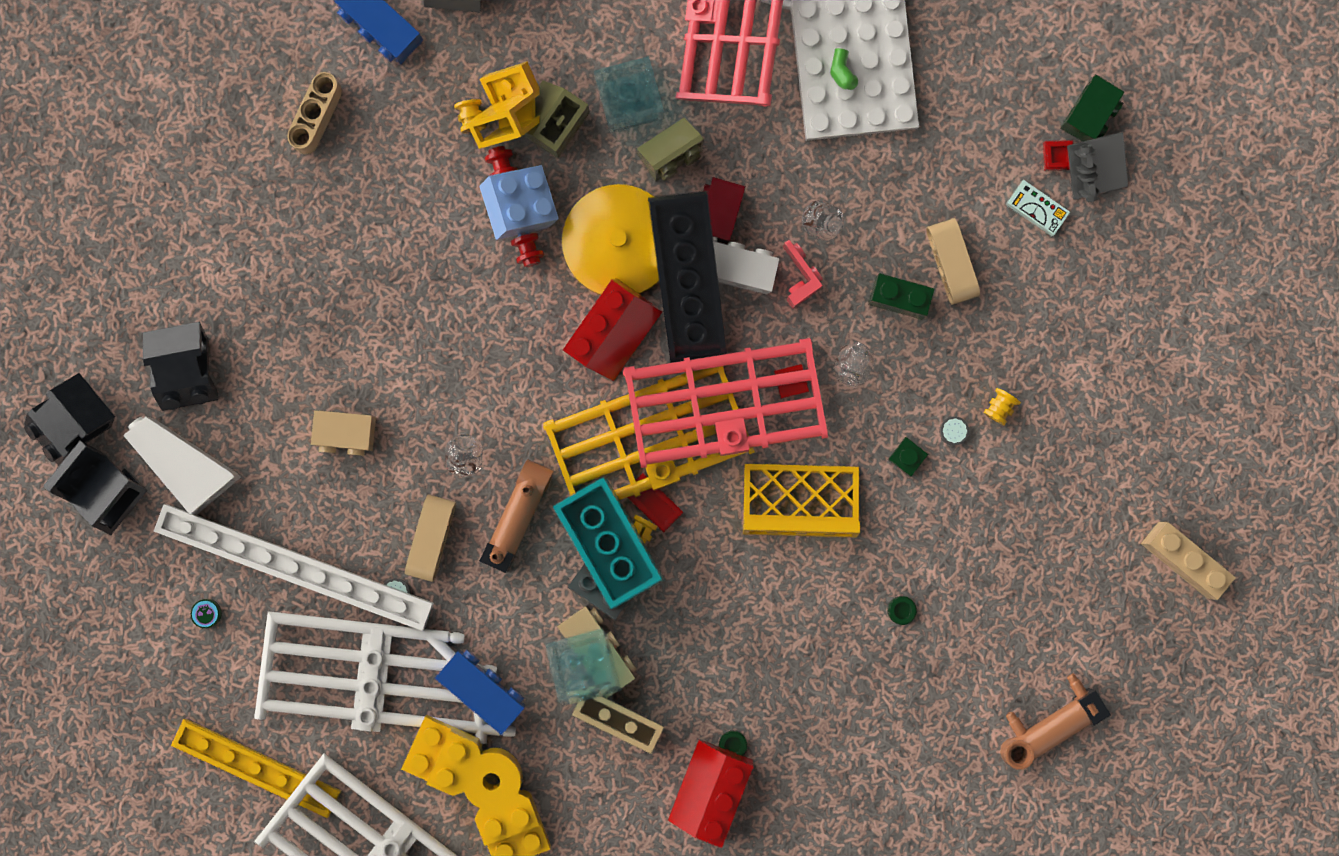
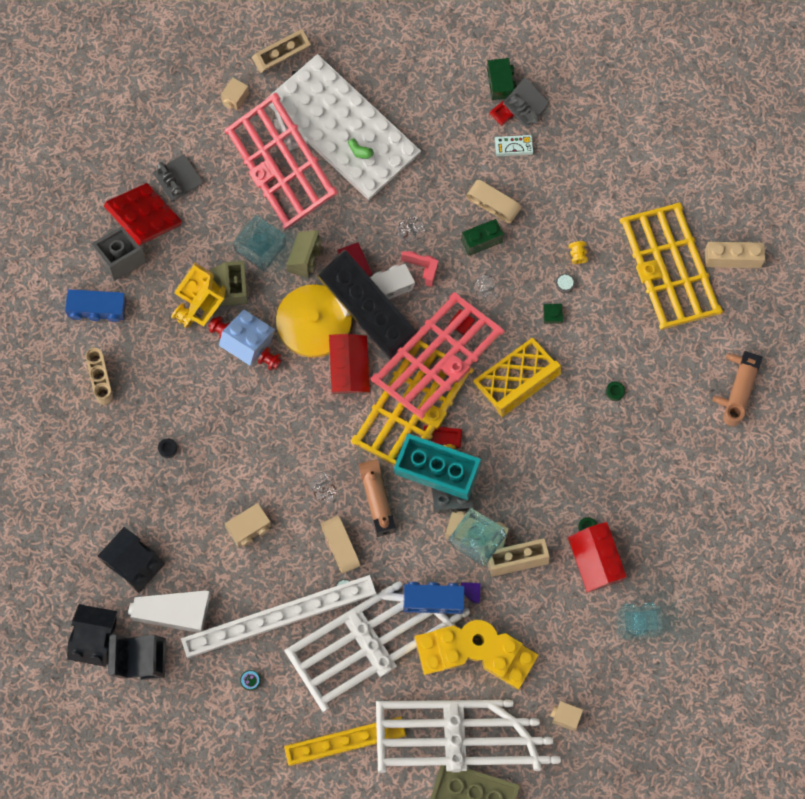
camera: 40 degrees left, 15 degrees down
(327, 263) = (167, 448): none -> black tile
(536, 713) = (472, 591): none -> dark purple tile
(1079, 502) = (656, 268): none -> yellow door

